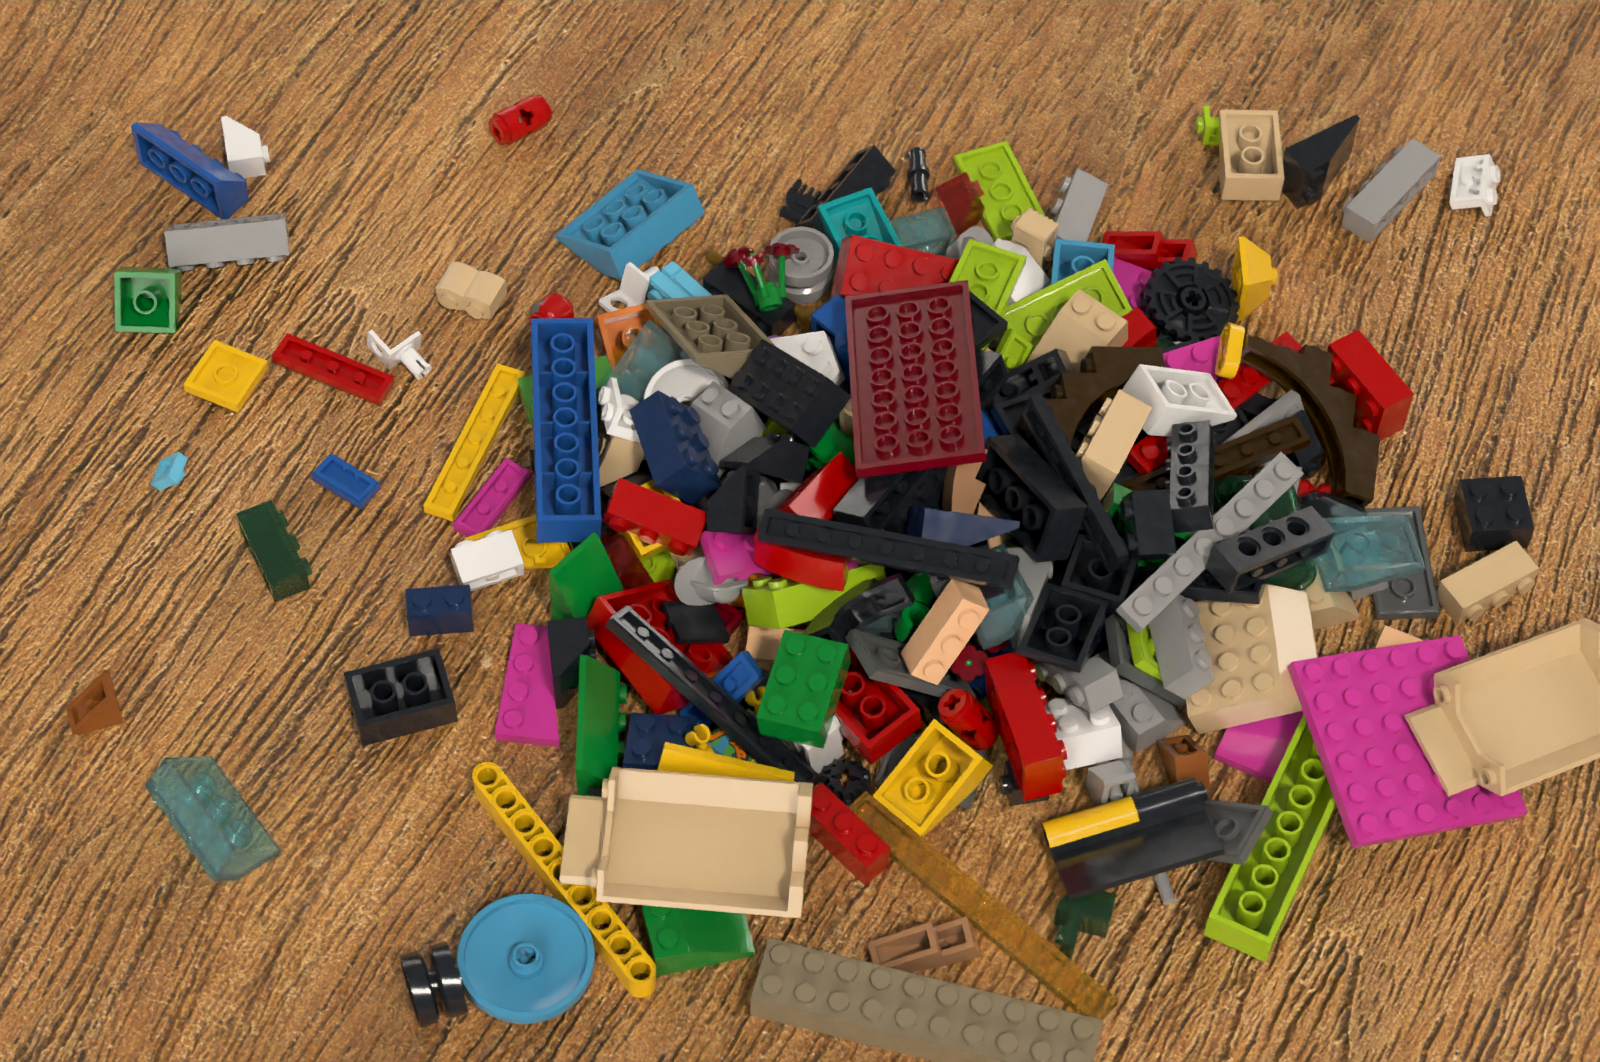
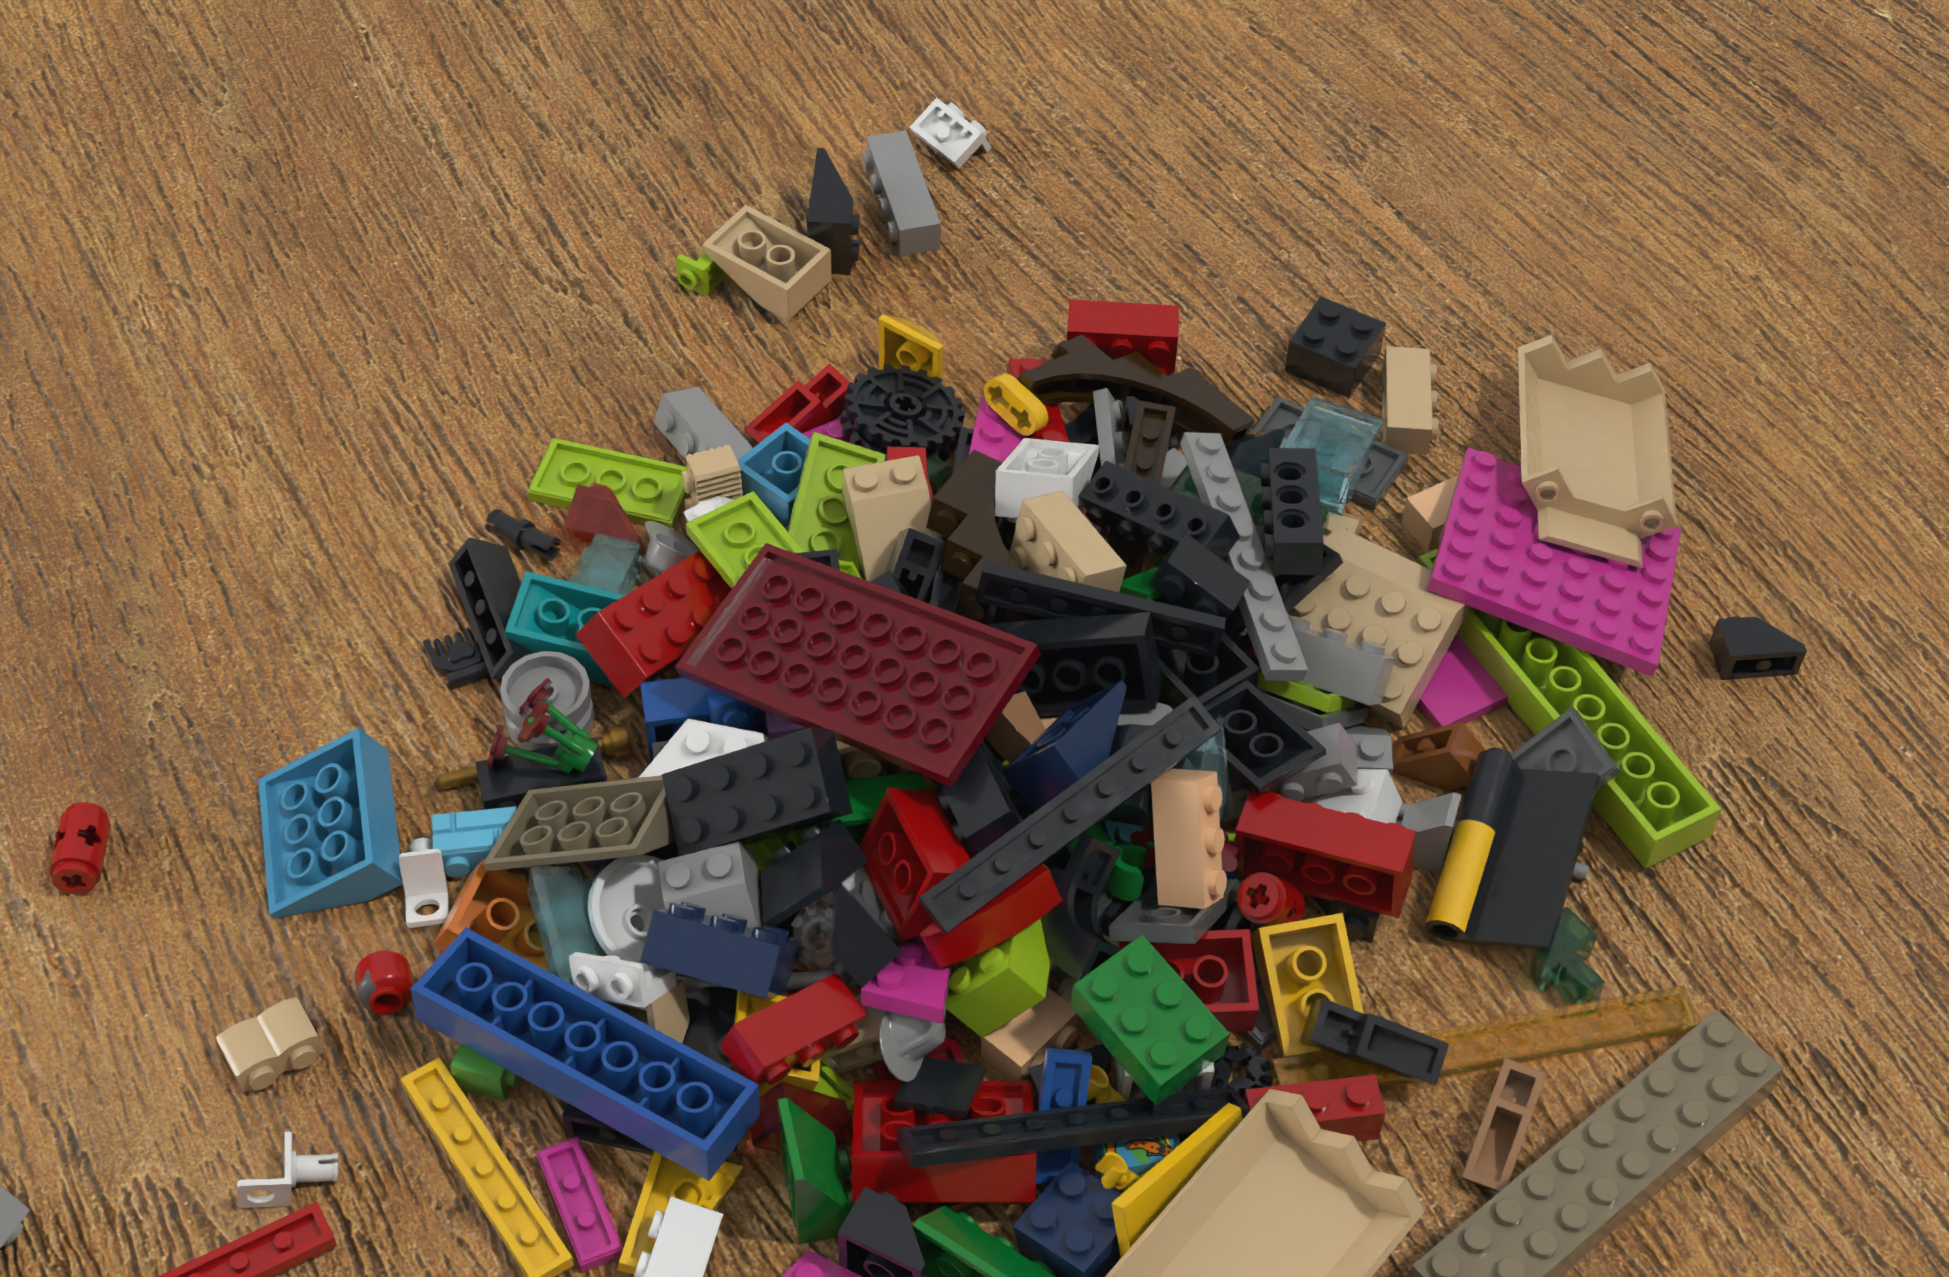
camera: 55 degrees left, 5 degrees down
(914, 834) = (1374, 1041): none -> black slope
(1451, 908) = (1754, 649): none -> black slope

